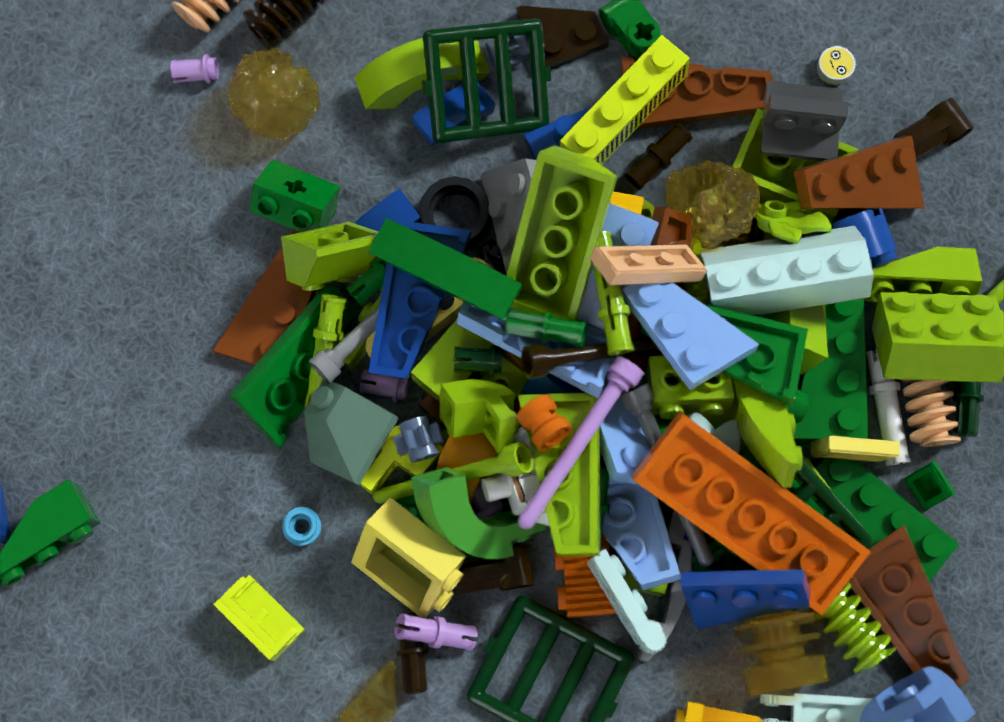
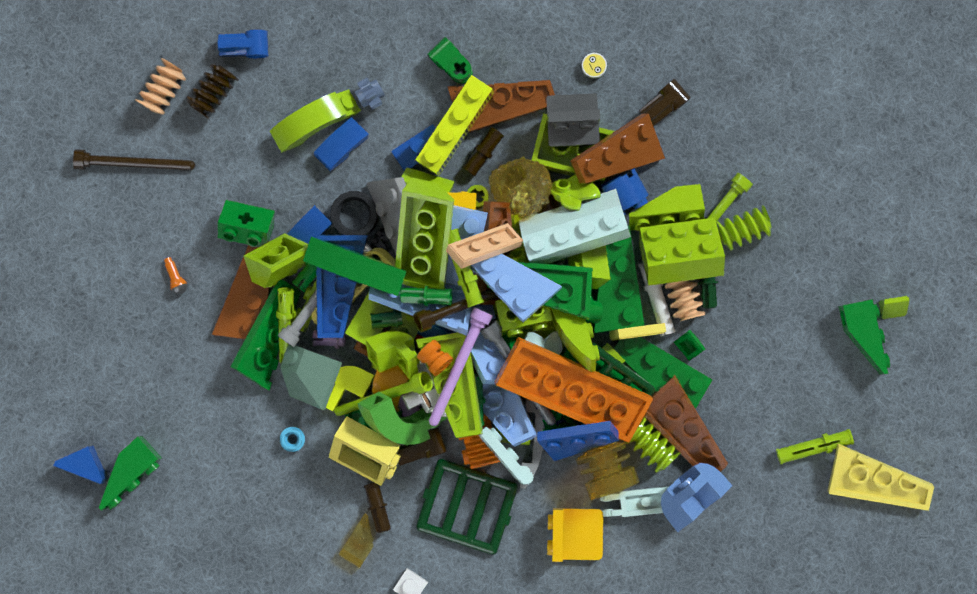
camera: 10 degrees left, 10 degrees up
(80, 76) = (84, 159): none -> dark brown piece
(178, 270) = (177, 283): none -> orange piece
(195, 70) = (160, 142): lavender pin -> none
(259, 617) = (277, 501): neon yellow hinge -> none
(272, 94) = (216, 154): clear yellow hair -> none
(418, 439) = (357, 375): sand blue gear -> none
(436, 632) = (390, 492): lavender pin -> none
(465, 36) = (339, 98): dark green bar -> none
(566, 33) = (404, 74): dark brown wing -> none

